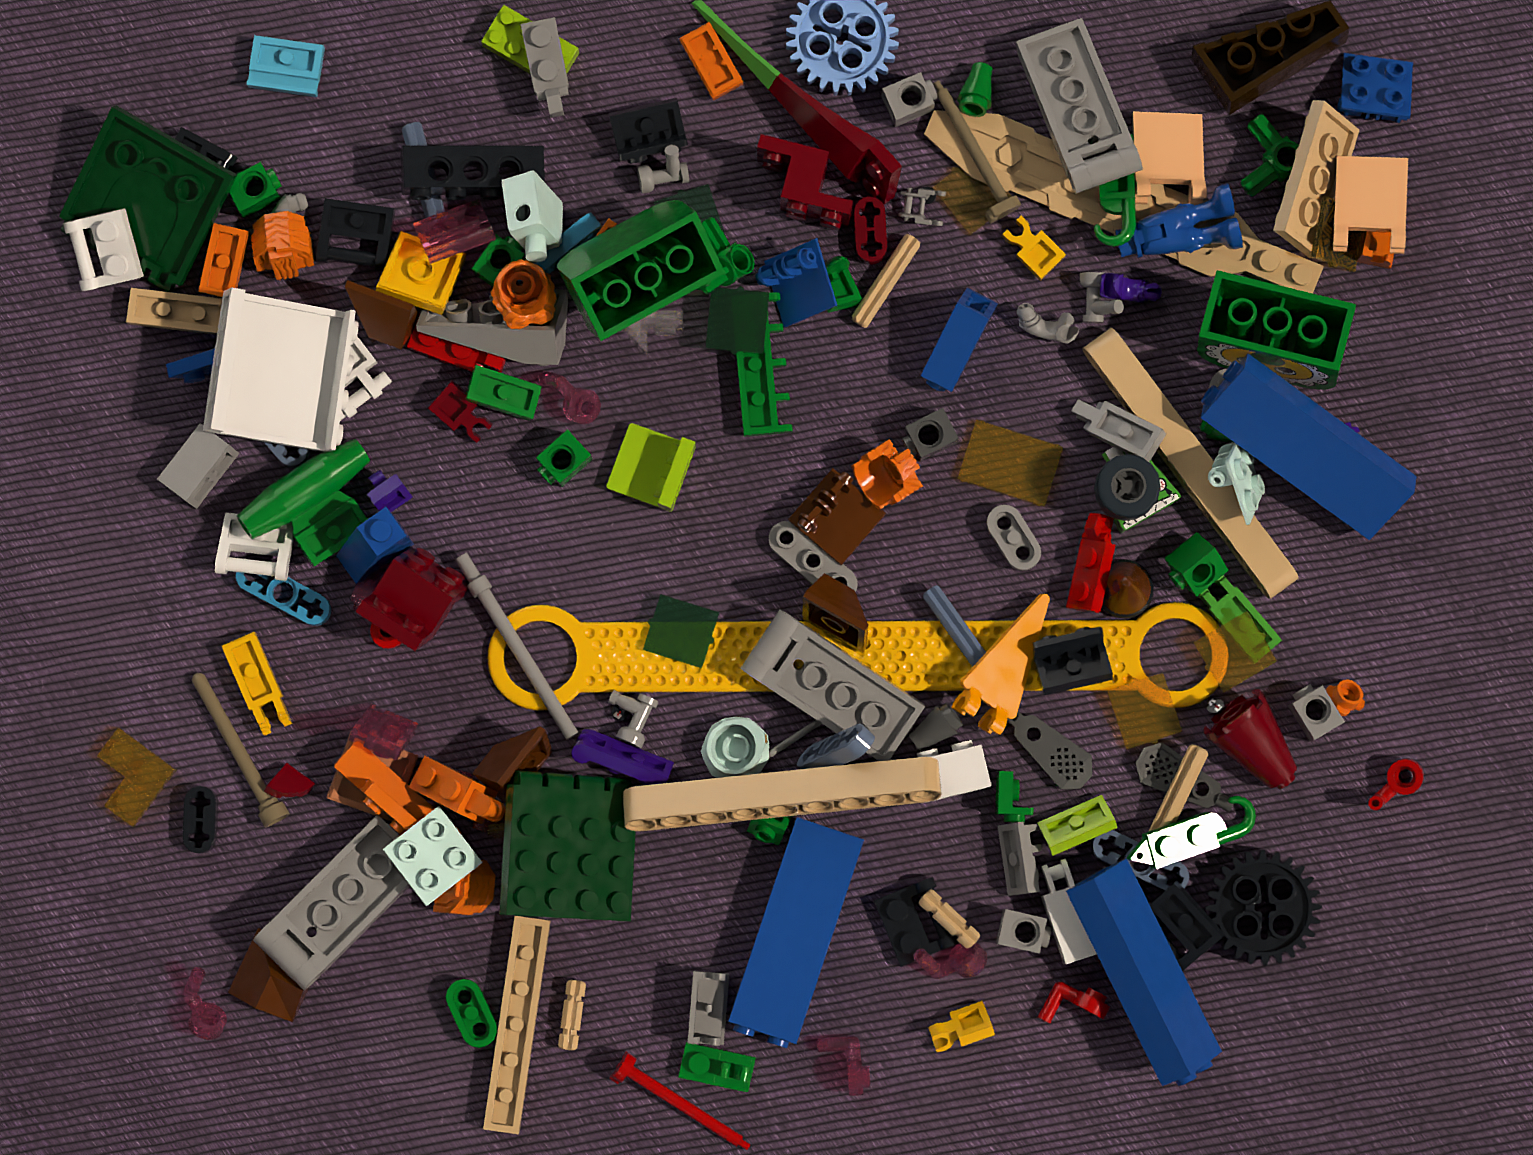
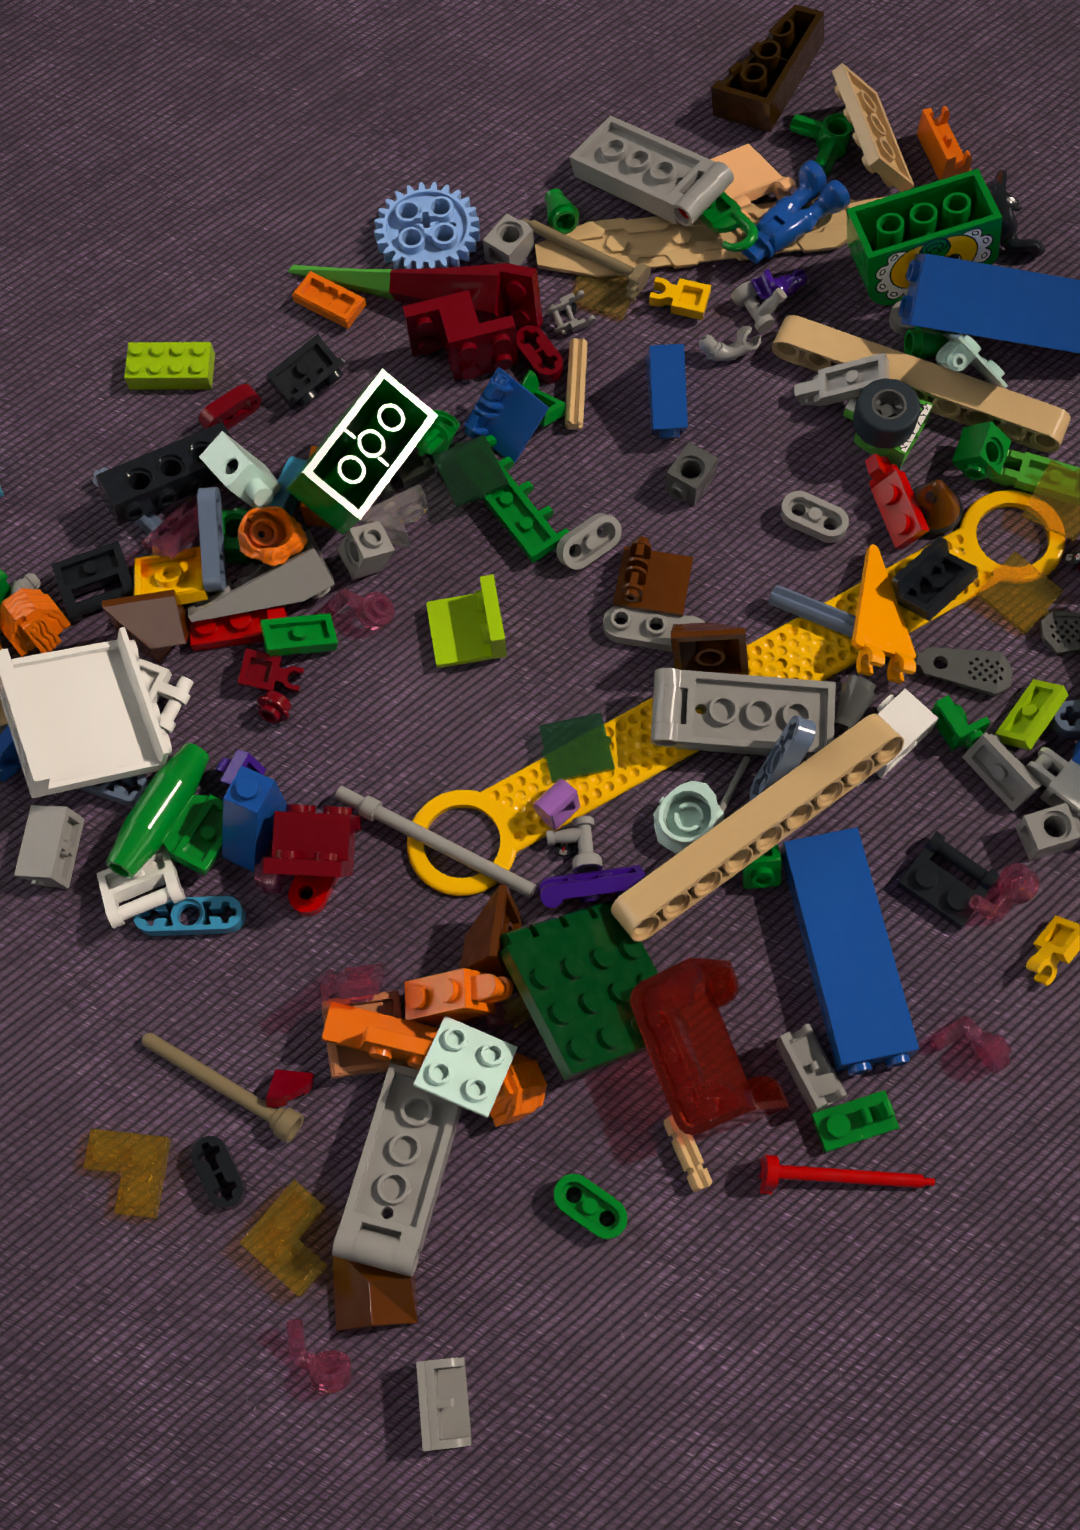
camera: 25 degrees left, 15 degrees down
(217, 903) = (277, 1242): none -> clear yellow plate
(256, 679) = (204, 1007): yellow hinge -> none
(279, 1093) = (443, 1404): none -> light grey hinge
(447, 447) = (274, 707): none -> dark red plate
(472, 267) = (211, 539): none -> sand blue beam
(516, 1025) = (642, 1195): tan plate -> none
(546, 63) = (189, 361): light grey hinge -> none
(559, 128) = (231, 407): none -> dark red beam
(564, 443) = (381, 647): green brick -> none
(608, 352) = (366, 549): none -> light grey brick
(622, 946) = (693, 1048): none -> clear red windscreen
(634, 674) = (557, 804): none -> medium lavender brick
(674, 171) = (348, 392): light grey piece -> none
(803, 447) = (587, 543): none -> light grey plate
(886, 475) = (675, 520): orange hair -> none
(949, 918) = (979, 855): tan axle -> none
(1010, 463) = (770, 466): clear yellow piece -> none
(1323, 240) = (913, 160): clear yellow piece -> none
(1366, 339) = (1006, 206): none -> black piece
(1370, 198) = (926, 116): light nougat flag -> none
(1376, 87) = (873, 58): blue hinge -> none

